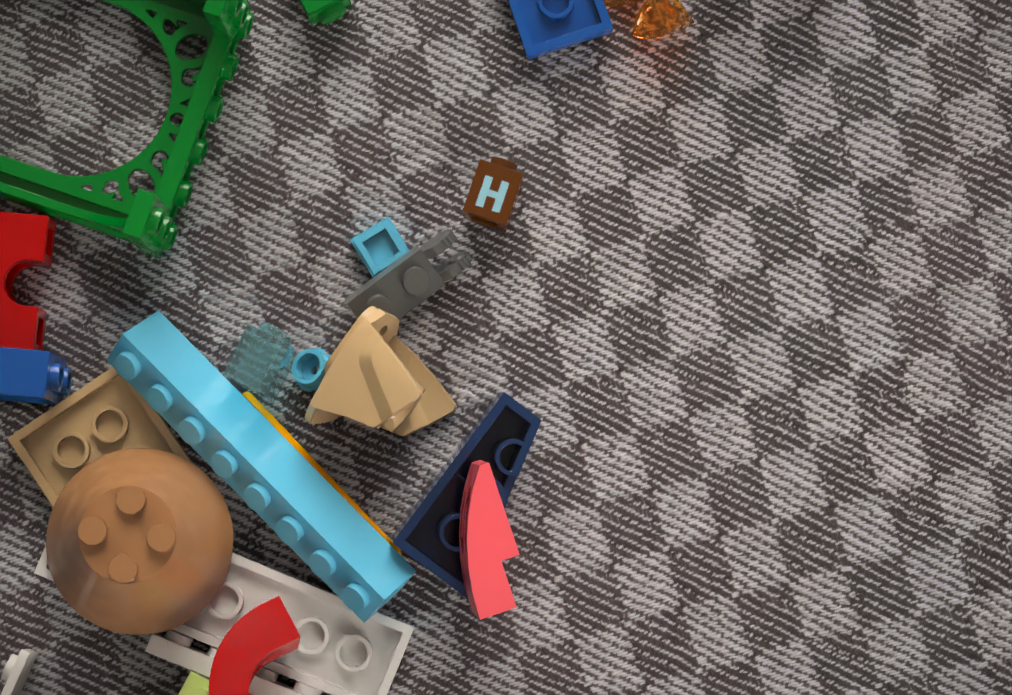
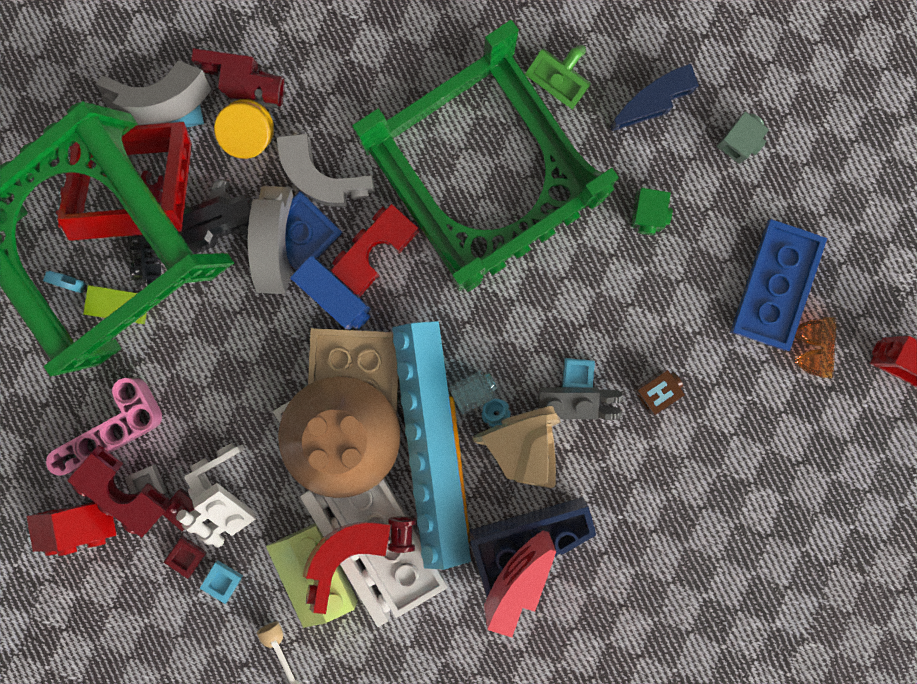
camera: 35 degrees right, 5 degrees up
(304, 600) = (401, 534): none -> dark red bush

